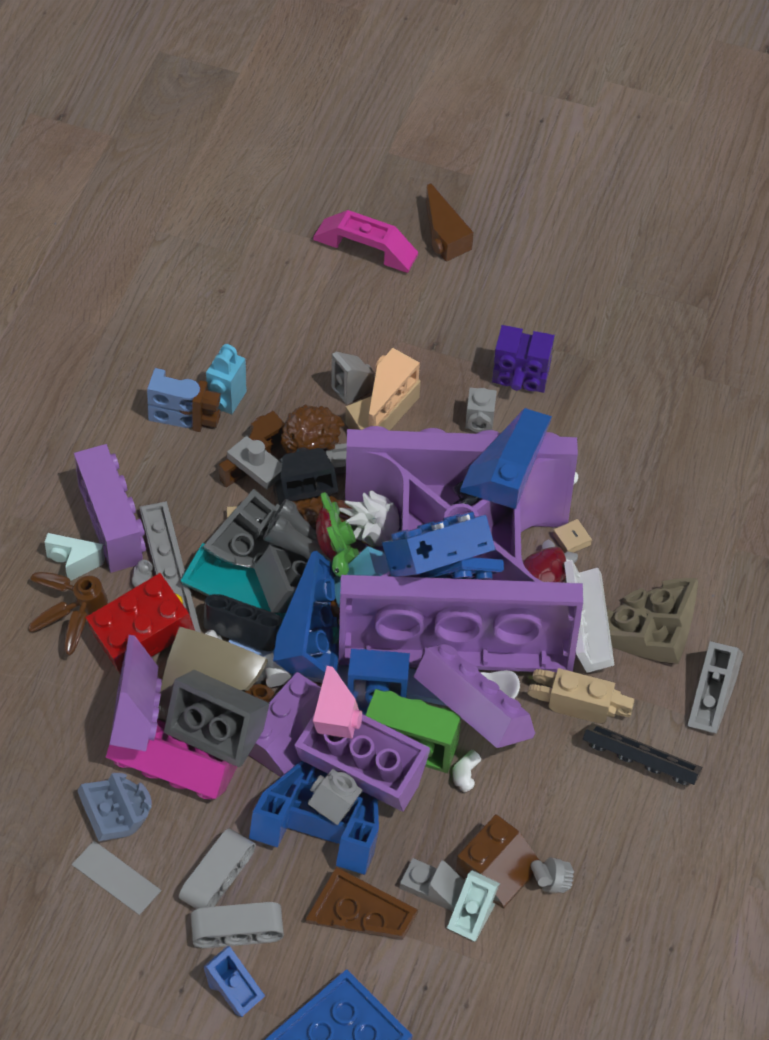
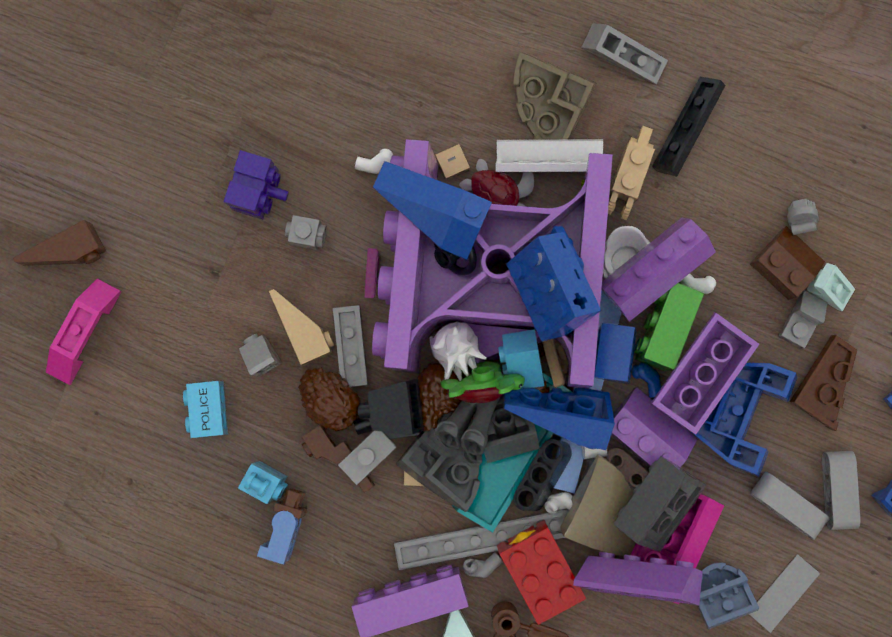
camera: 85 degrees left, 30 degrees up
(296, 340) = (205, 409): none -> medium azure brick
(334, 795) = (740, 400): light grey brick -> none
(336, 708) = (675, 394): bright pink slope -> none
(393, 379) = (279, 317): light nougat slope -> none

